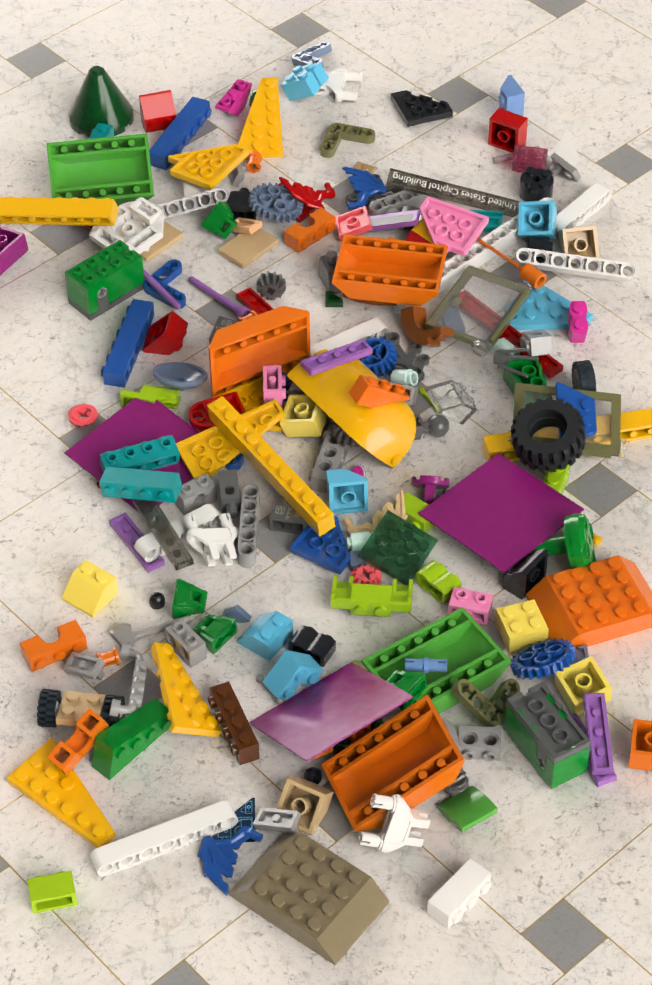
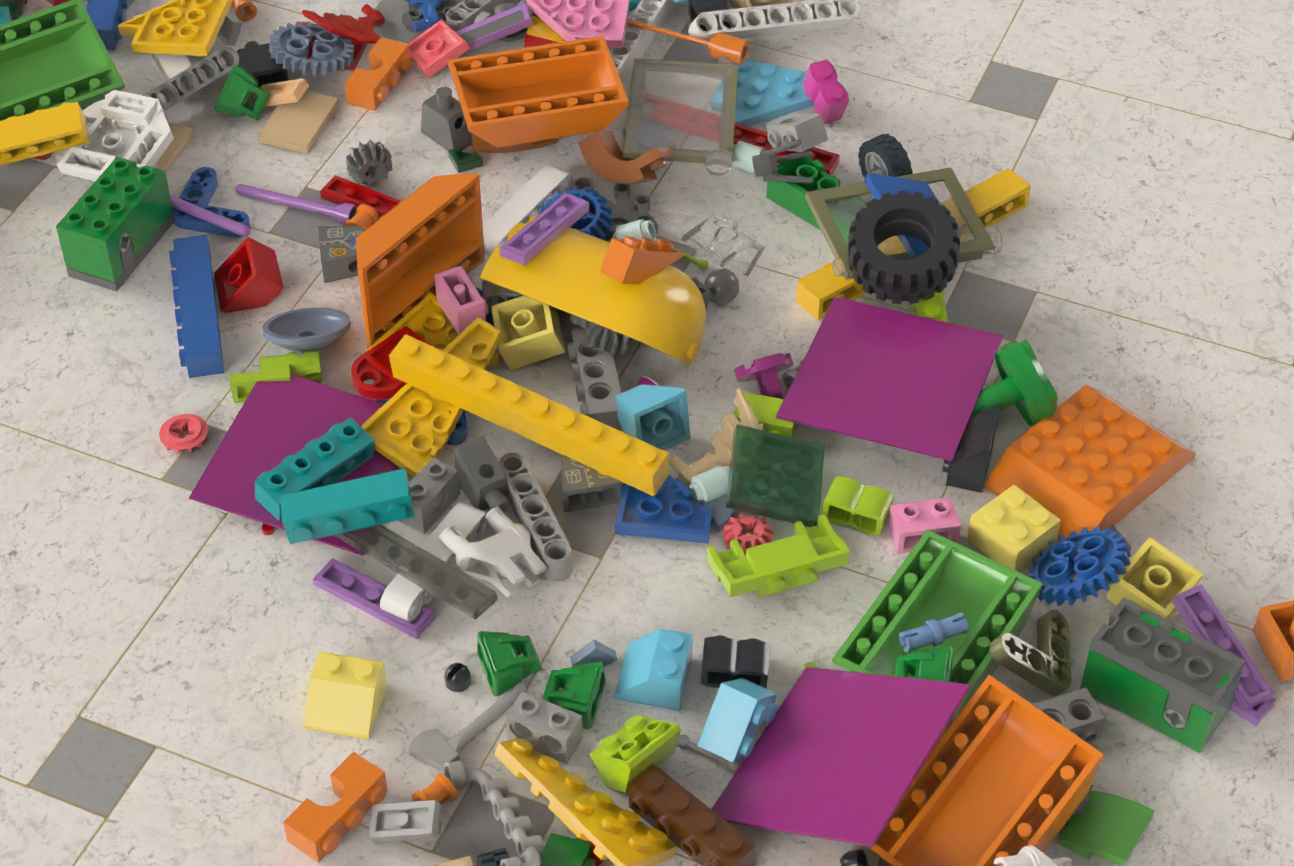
camera: 25 degrees left, 0 degrees up
(230, 668) = (634, 749): none -> lime slope

